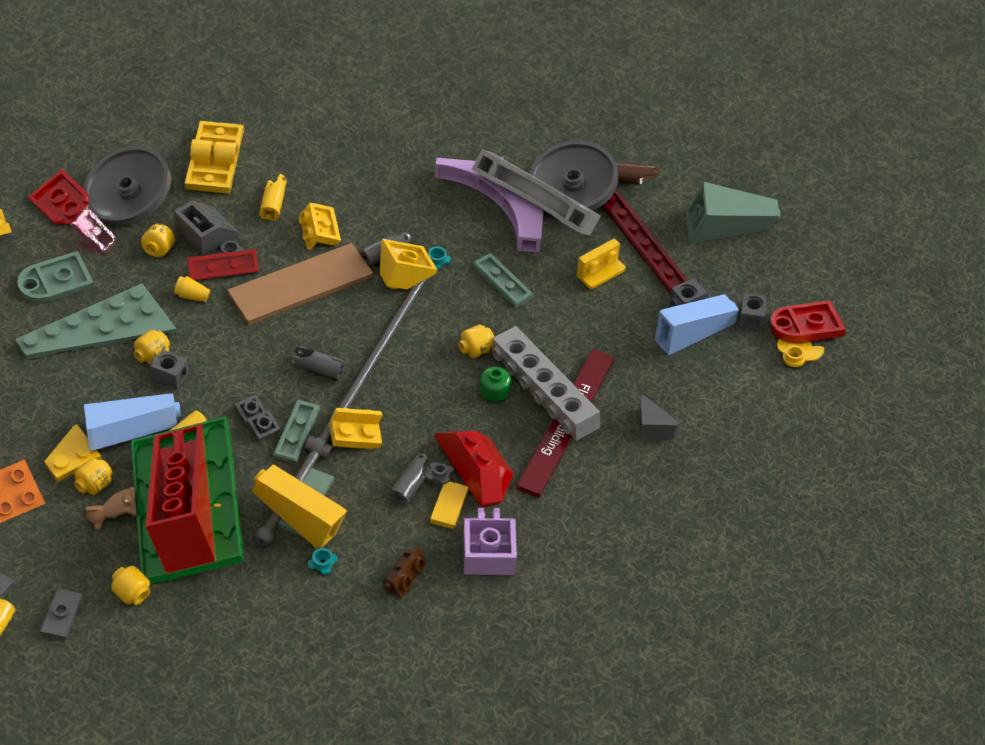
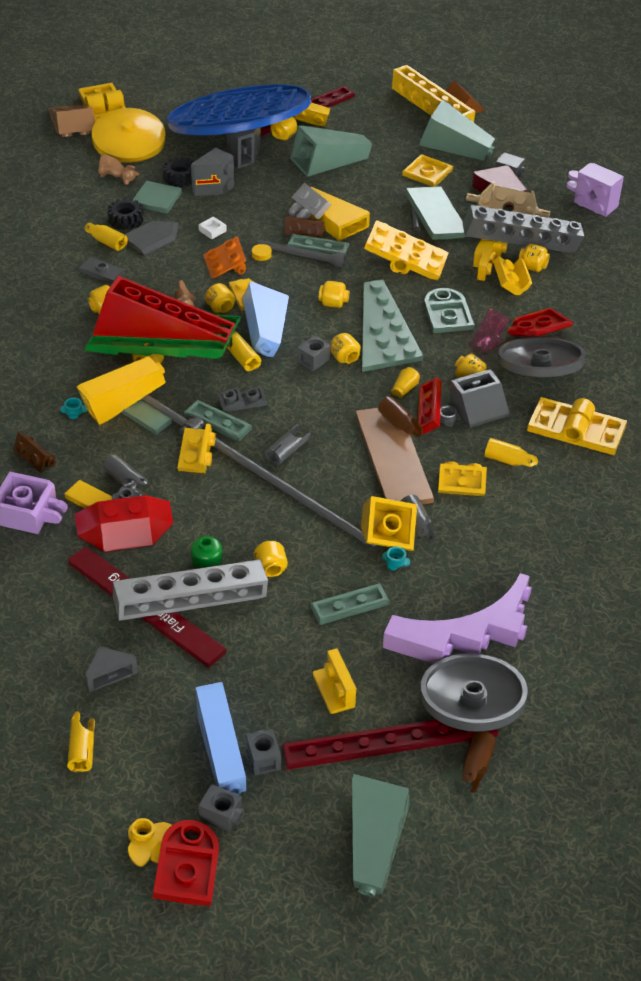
camera: 110 degrees right, 5 degrees down
(56, 375) = (333, 294): none -> yellow head
(256, 278) = (399, 416): none -> reddish brown piece
(534, 190) = (479, 606): light grey arch -> none
(736, 418) = (80, 744): none -> yellow piece

